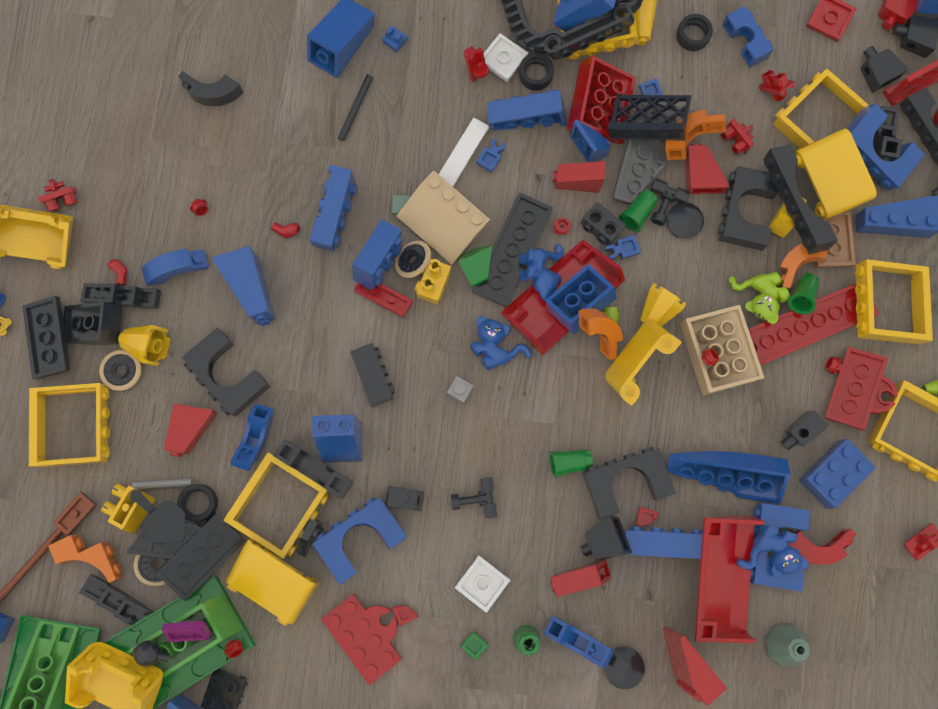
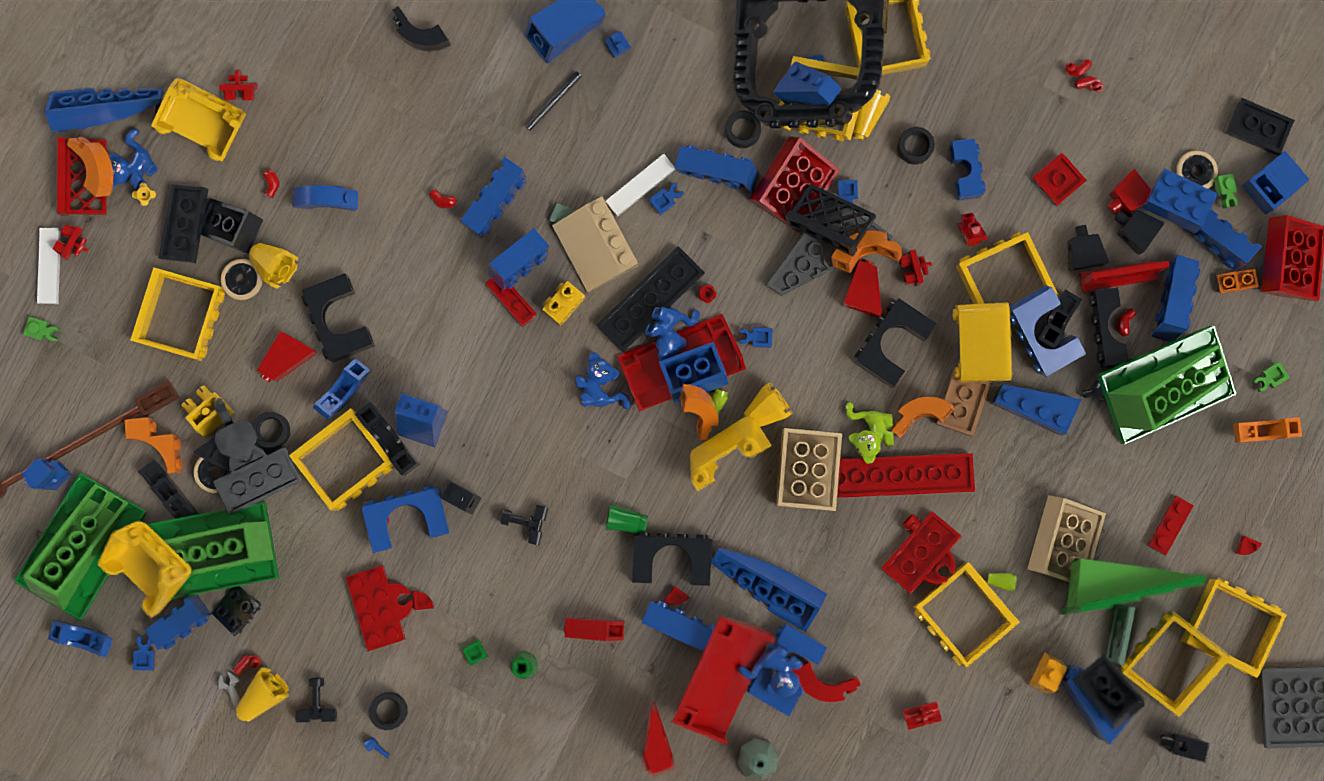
camera: 20 degrees right, 5 degrees up
(121, 295) = (265, 208): black slope -> none
(148, 653) = (184, 549): black piece -> none
(162, 484) = (245, 401): light grey bar -> none
(186, 631) = (224, 542): magenta plate -> none
(199, 207) = (368, 147): red plate -> none
(233, 648) = (259, 573): red plate -> none
(245, 277) = (387, 240): blue slope -> none
(271, 582) = (312, 527): yellow windscreen -> none
(310, 533) = (367, 494): black wing -> none
(373, 374) = (473, 371): black brick -> none
(423, 256) = (551, 284): wheel -> none
(460, 390) = (549, 416): light grey brick -> none
(475, 63) = (684, 101): red hips -> none
(476, 264) = (608, 302): green slope -> none
(482, 583) = (502, 600): white plate -> none
(504, 57) = (716, 103): white plate -> none
(579, 642) = (569, 683): blue arch -> none
(580, 176) = (741, 252): red slope -> none
(589, 142) = (766, 222): blue slope -> none
(606, 220) = (750, 305): black brick -> none
(606, 540) = (630, 603): black torso -> none
(625, 668) = (602, 723): black dish -> none
(638, 211) = (786, 306): green plant -> none
(667, 195) = (821, 301): black bar -> none
(685, 220) = (828, 331): black dish -> none
(710, 357) = (790, 472): red plate -> none
(782, 222) = (928, 362): yellow slope -> none
(804, 296) = (910, 446): green plant -> none
(810, 424) = (862, 571): black torso -> none
(814, 232) = (938, 392): black arch -> none
(837, 473) = (869, 624): blue brick -> none
(920, 302) = (1018, 497): yellow window -> none

